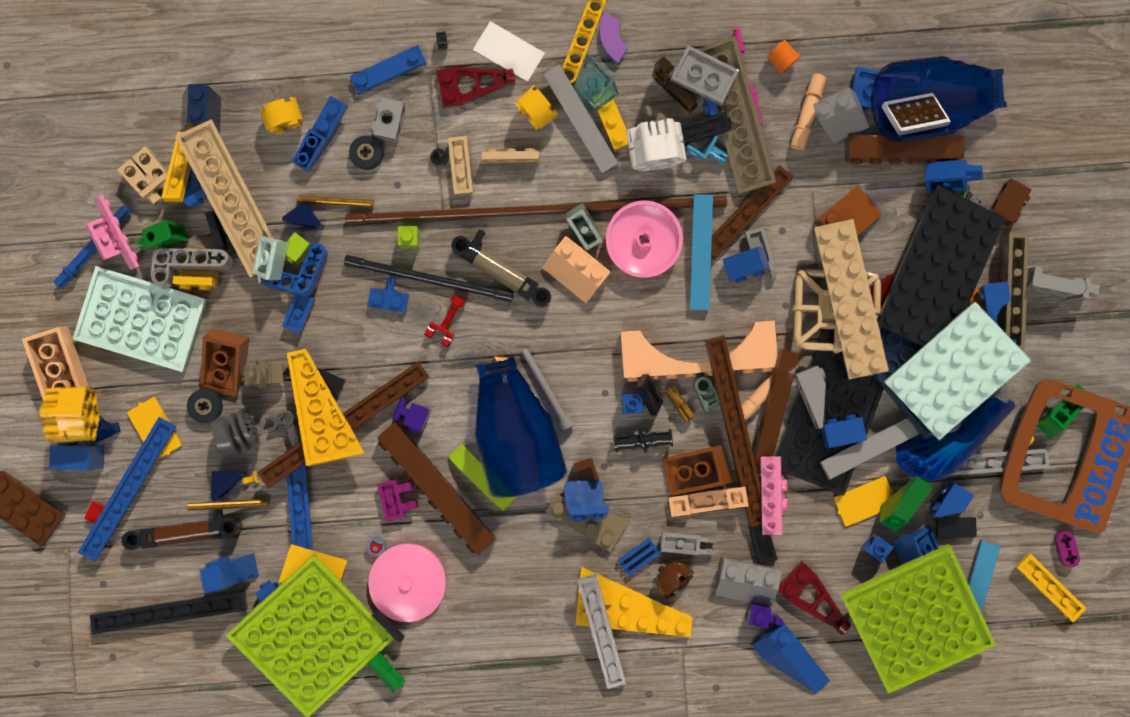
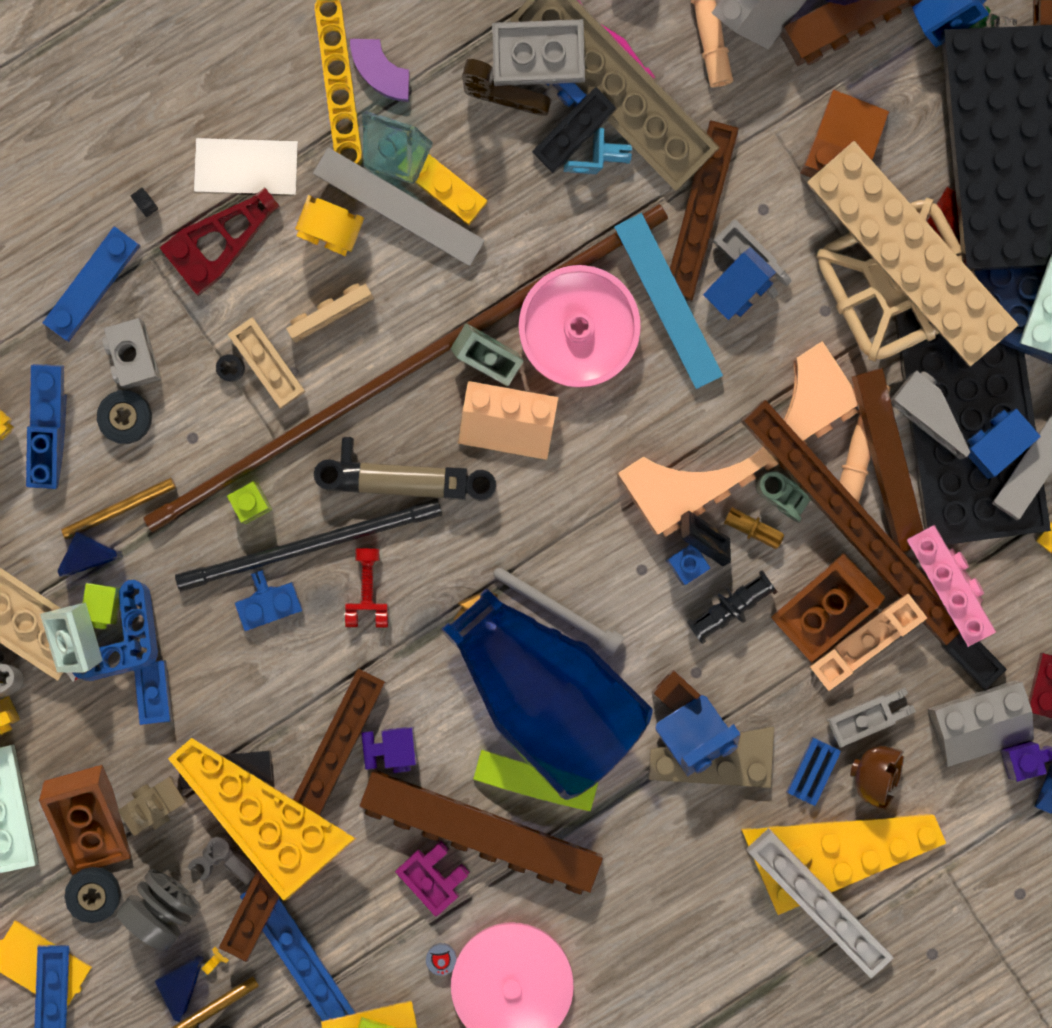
camera: 25 degrees left, 0 degrees up
(657, 149) = (528, 192): white piece -> none

